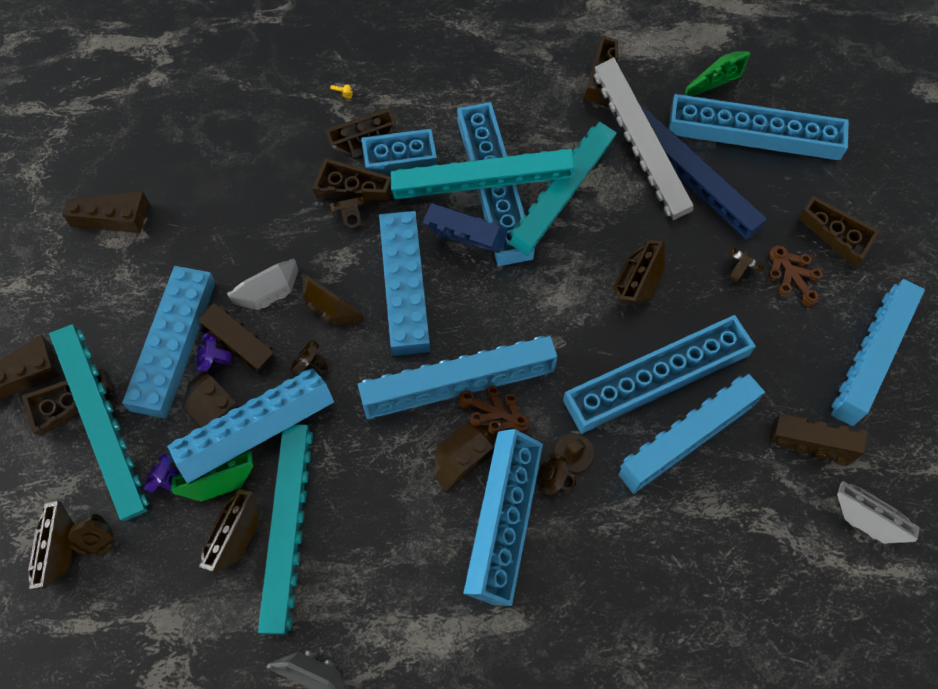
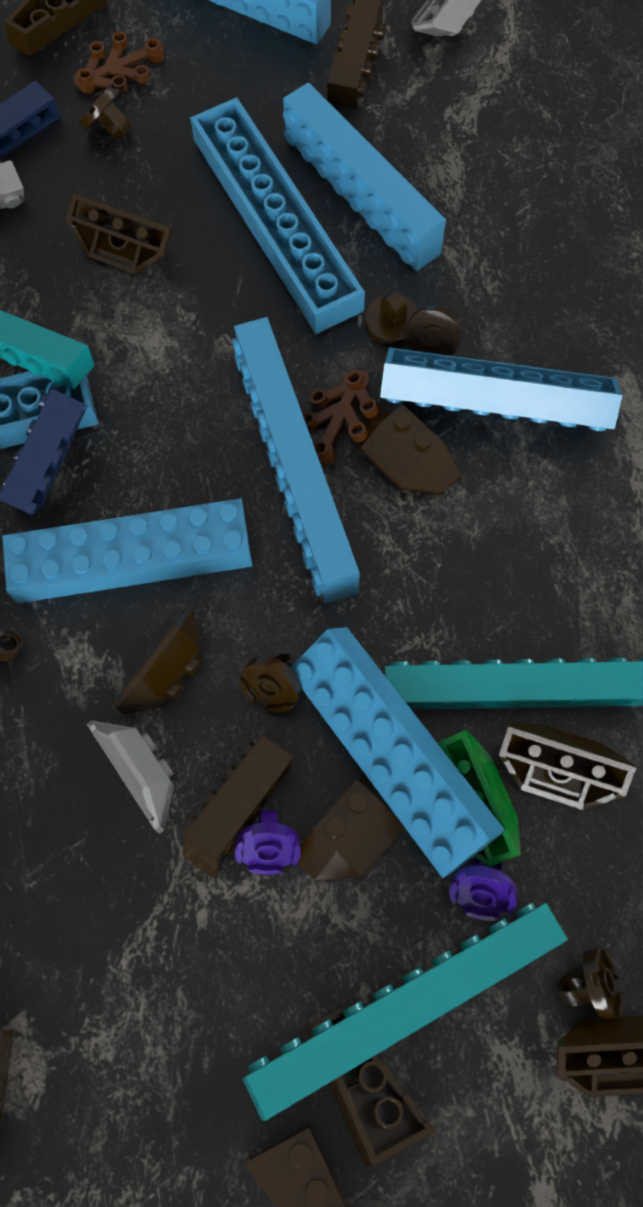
camera: 90 degrees left, 5 degrees up
(169, 343) = (241, 919): dark azure brick -> none

